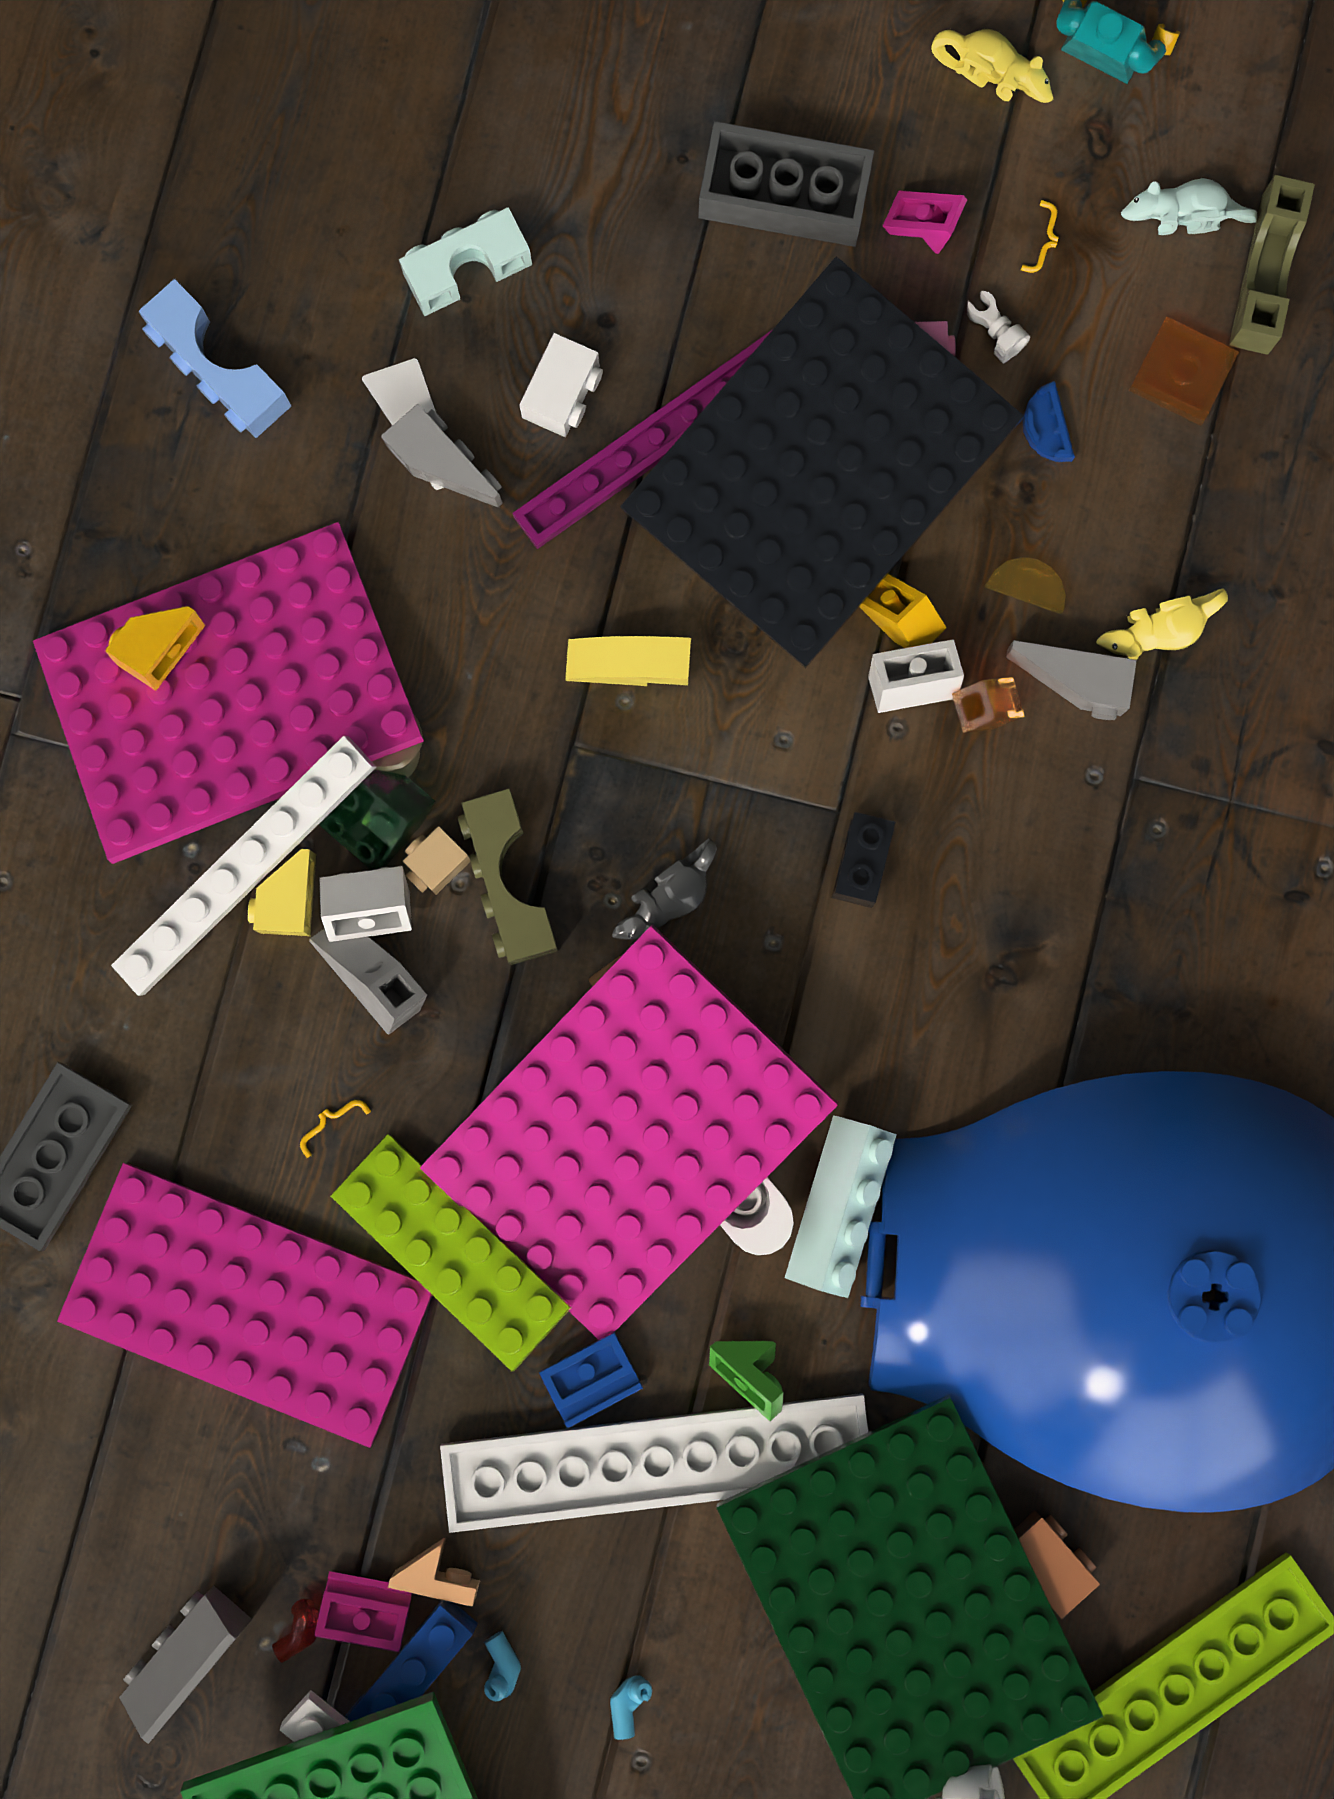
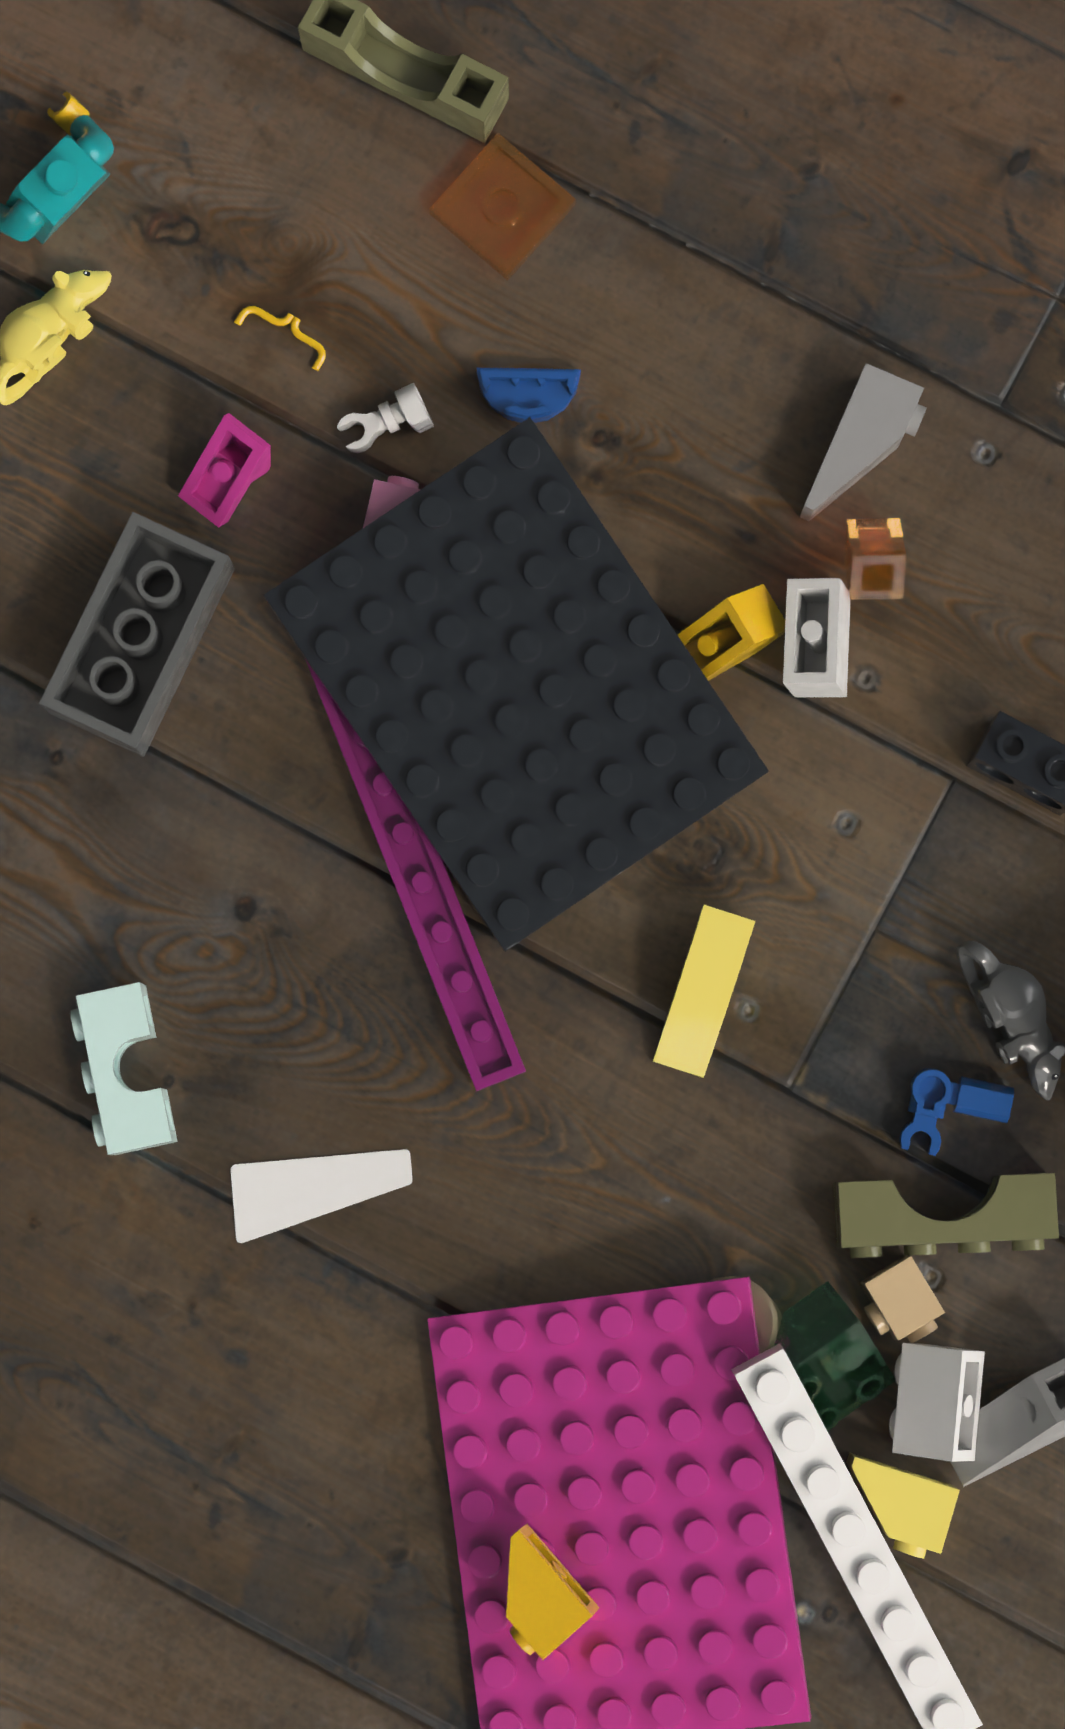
camera: 75 degrees left, 0 degrees up
(247, 393) = (112, 1463): light blue arch -> none
(430, 455) = (369, 1178): light grey slope -> none
(561, 385) = (324, 987): white brick -> none
(597, 849) = (972, 1097): none -> blue bar
(1030, 582) = (724, 467): clear yellow tile -> none
(1172, 627) = (828, 308): light yellow animal -> none
(1195, 204) = (296, 131): light aqua animal -> none

